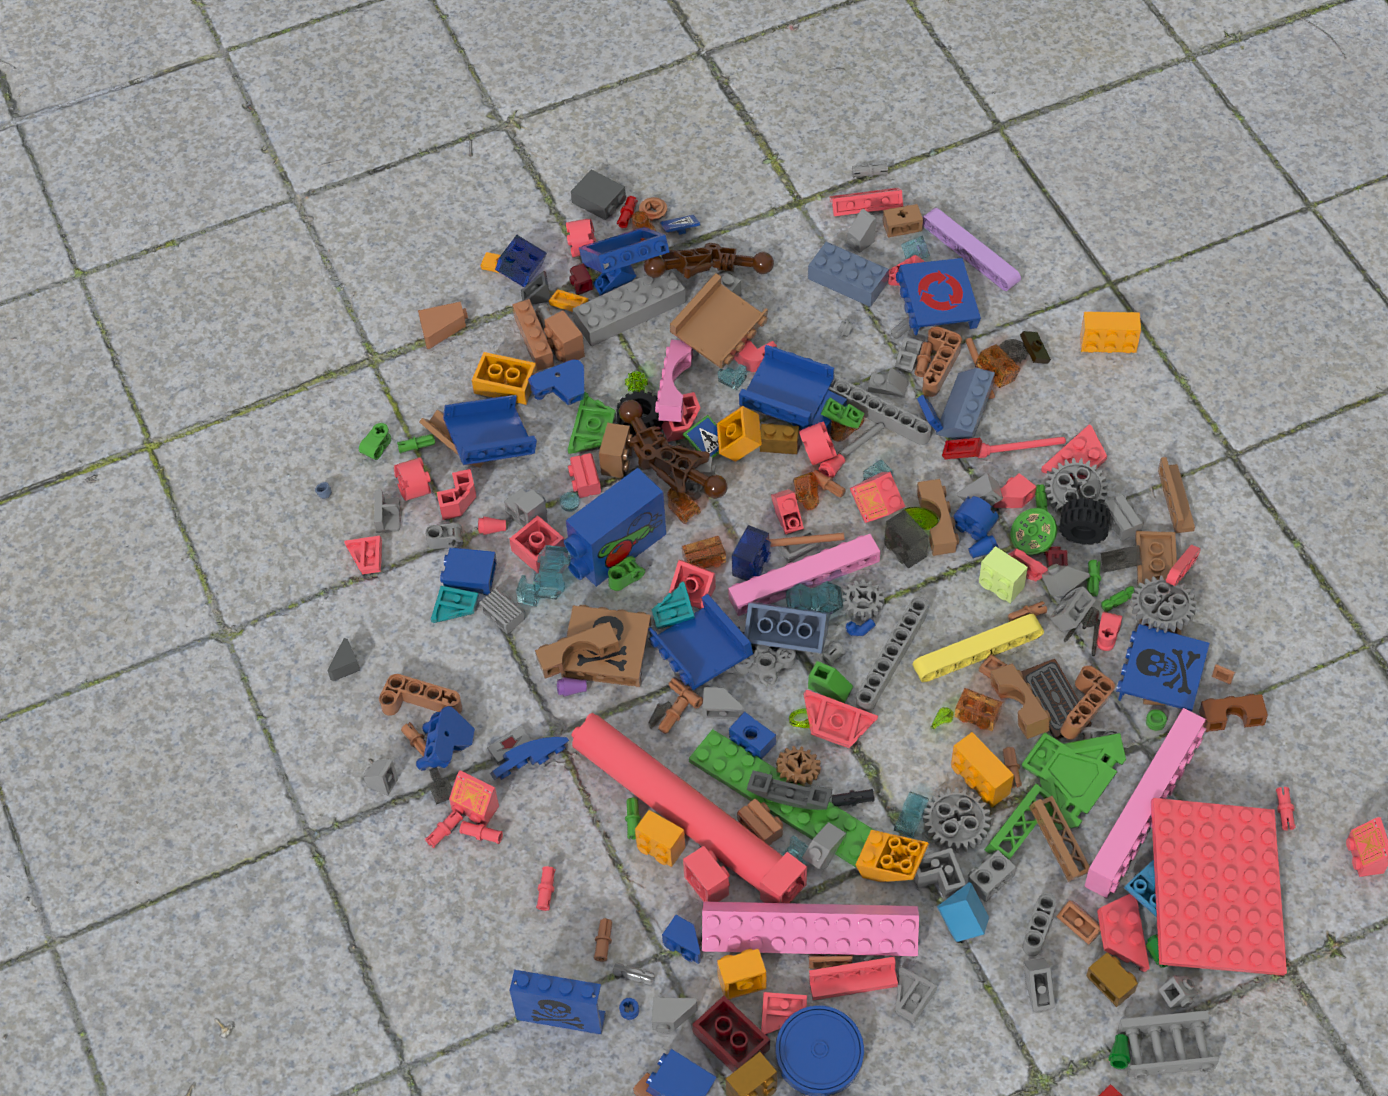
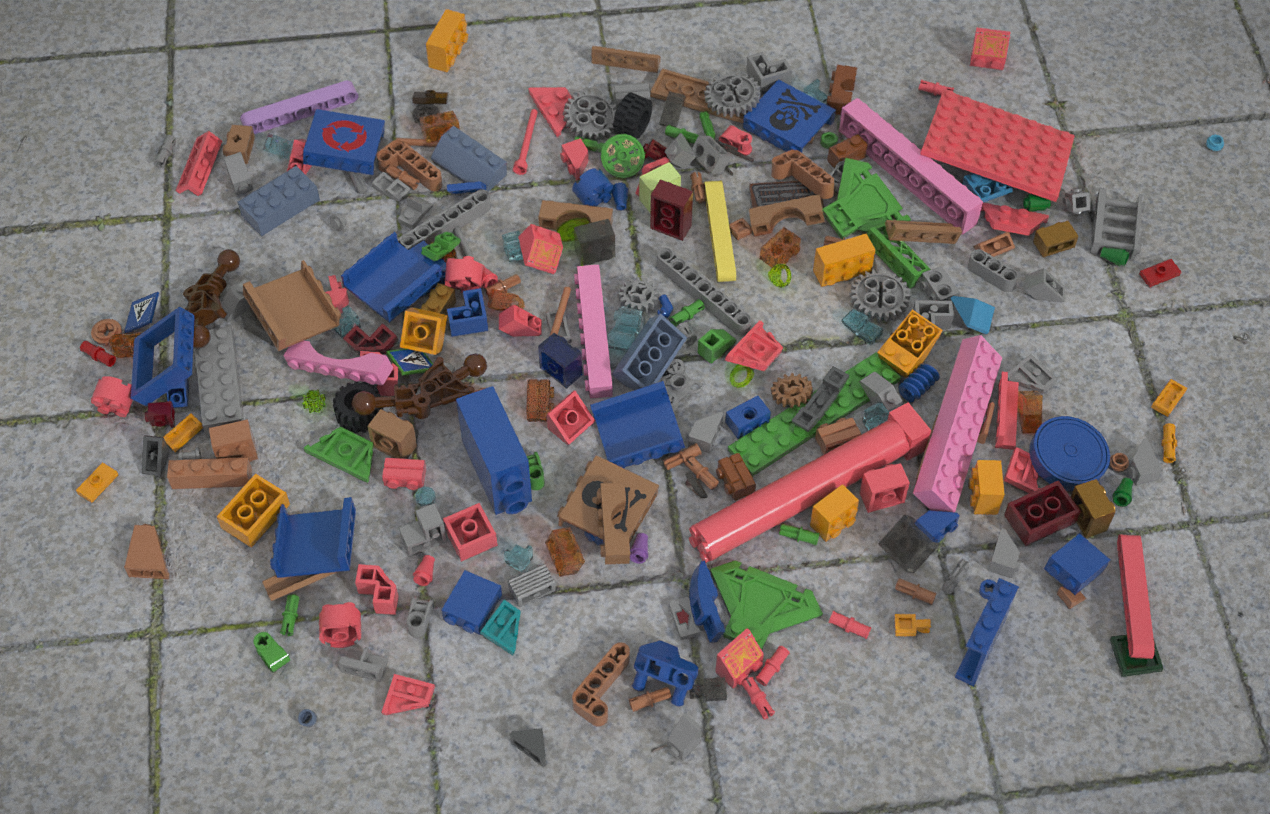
camera: 75 degrees left, 0 degrees up
(520, 261) = (112, 457): clear blue brick -> none
(541, 624) = (564, 551): none -> clear orange brick
(546, 806) = (761, 602): none -> bright green plate
(549, 580) = (515, 531): clear light blue brick -> none
(561, 941) = (908, 625): none -> light orange plate
(567, 387) = (292, 453): blue piece -> none
(598, 194) = (62, 370): dark grey brick -> none
(646, 914) = (909, 544): none -> clear smoke brick
(674, 608) = (588, 438): teal wing -> none
(678, 744) = (735, 476): none -> dark orange brick
(712, 391) = (380, 341): none -> dark red brick
(778, 468) = (468, 318): none -> blue brick
(856, 883) = (918, 382): none -> blue piece
(859, 648) = (687, 312): none -> bright green pin
(863, 1000) = (1030, 411): none -> clear orange slope
(867, 796) = (834, 357): black pin -> none
(962, 448) = (513, 178): red plate -> none
(972, 590) = (671, 210): none -> dark red brick
(984, 488) = (570, 173): light grey slope -> none
(1140, 738) = (851, 148): none -> dark orange brick
(1183, 565) = (701, 69): coral beam -> none
(1214, 686) = (813, 91): none -> clear light blue panel
(1215, 629) = (768, 73): none -> light grey brick
(1223, 674) = (804, 83): nougat slope -> none

